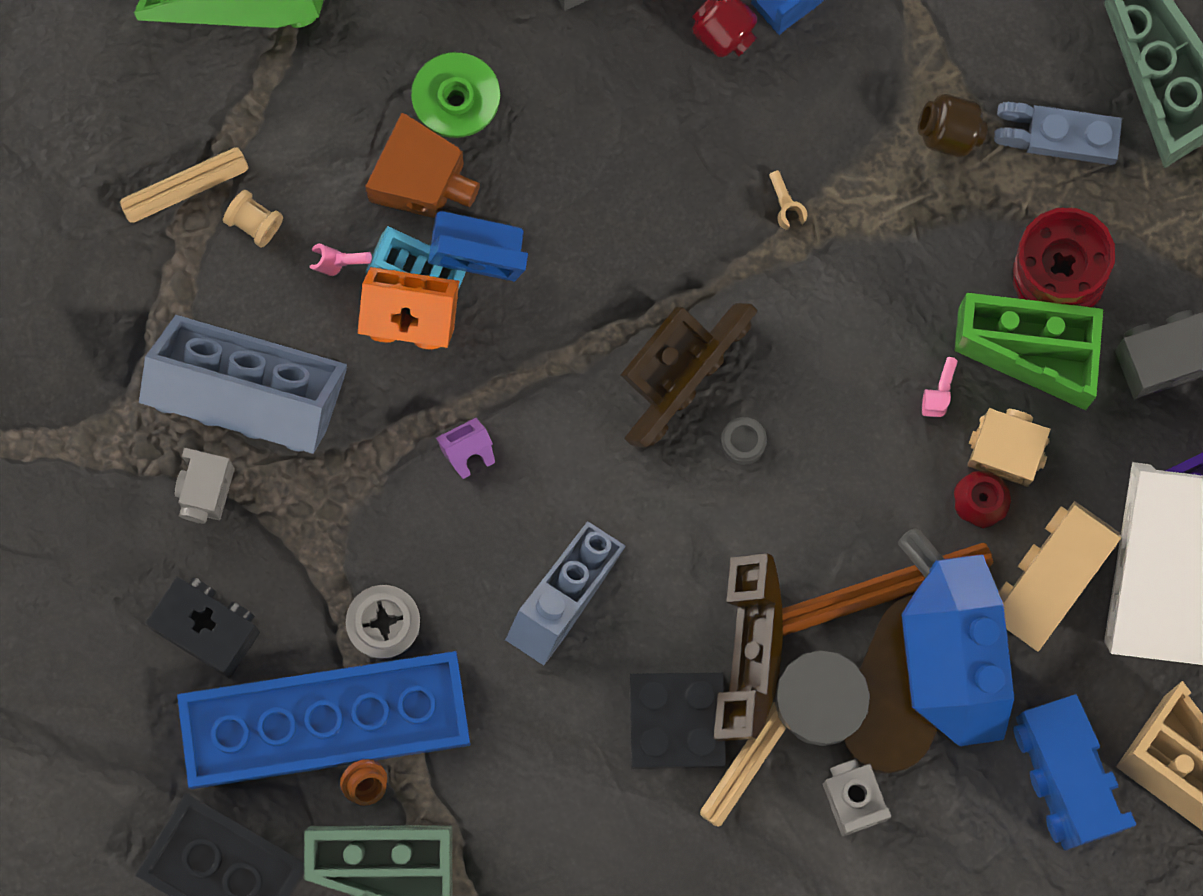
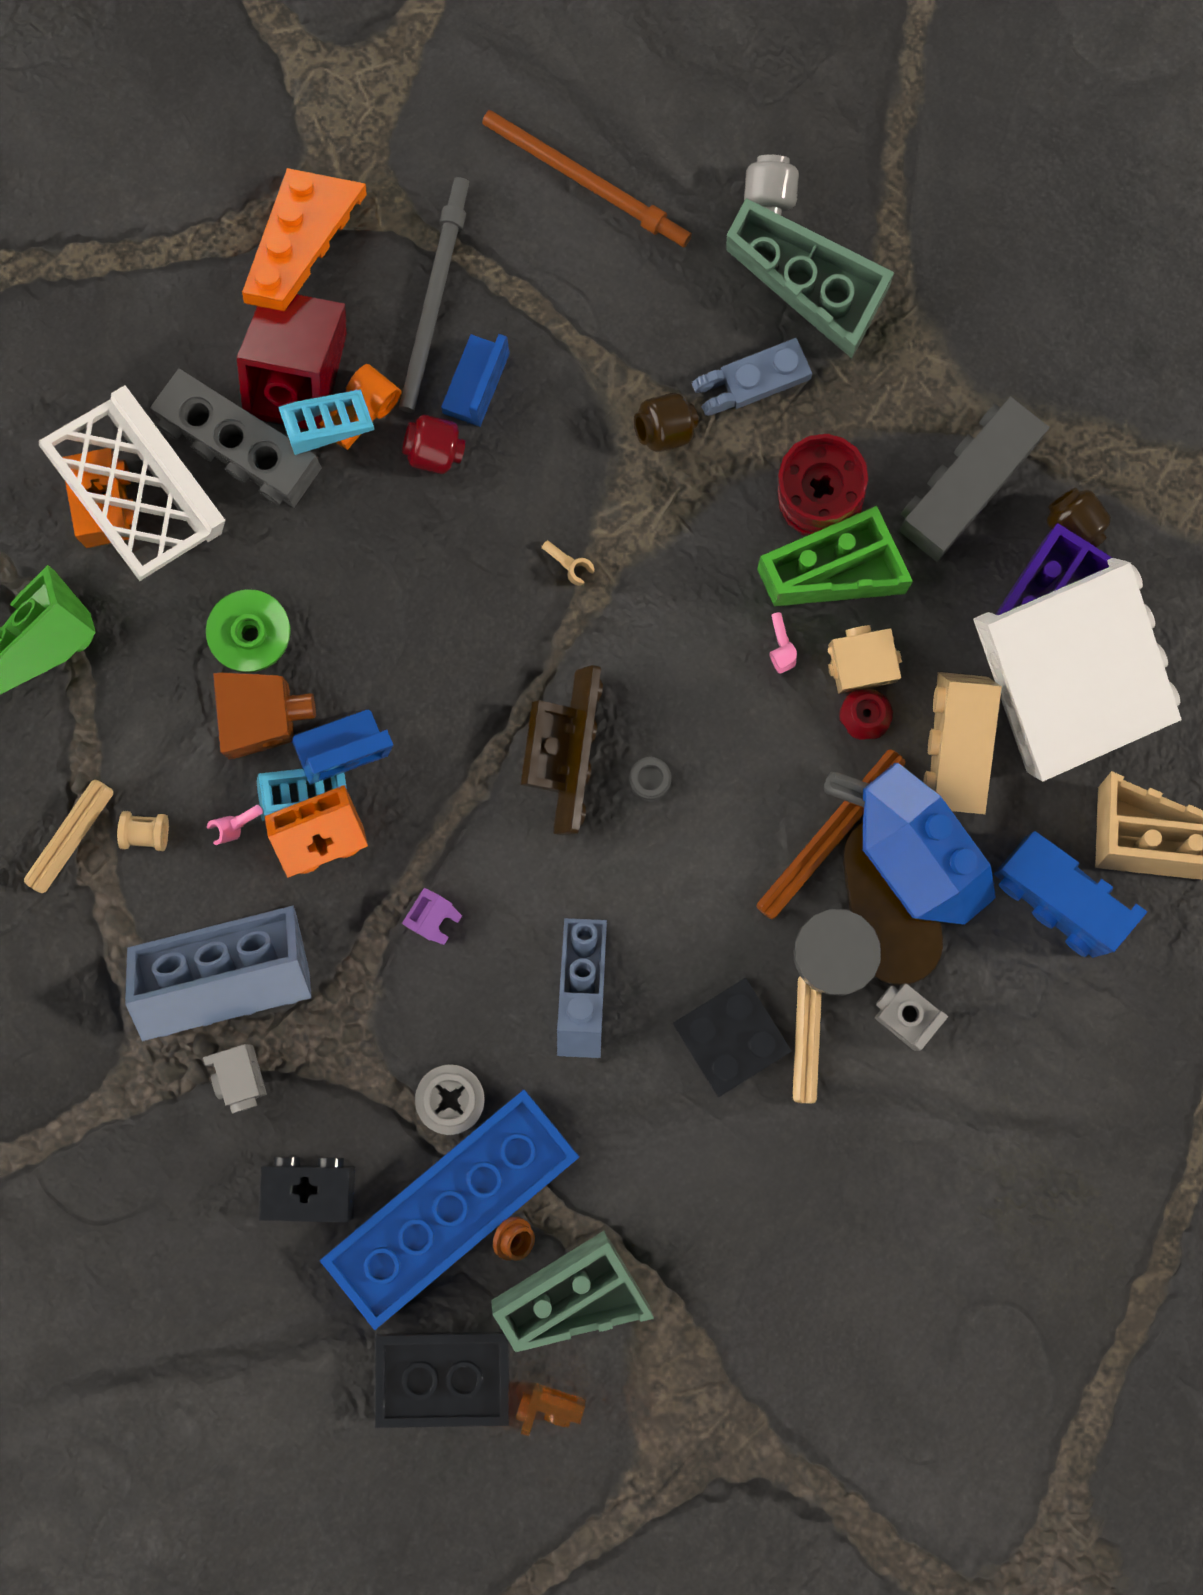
camera: 25 degrees left, 5 degrees up
(757, 648) = (762, 945): dark brown slope -> none

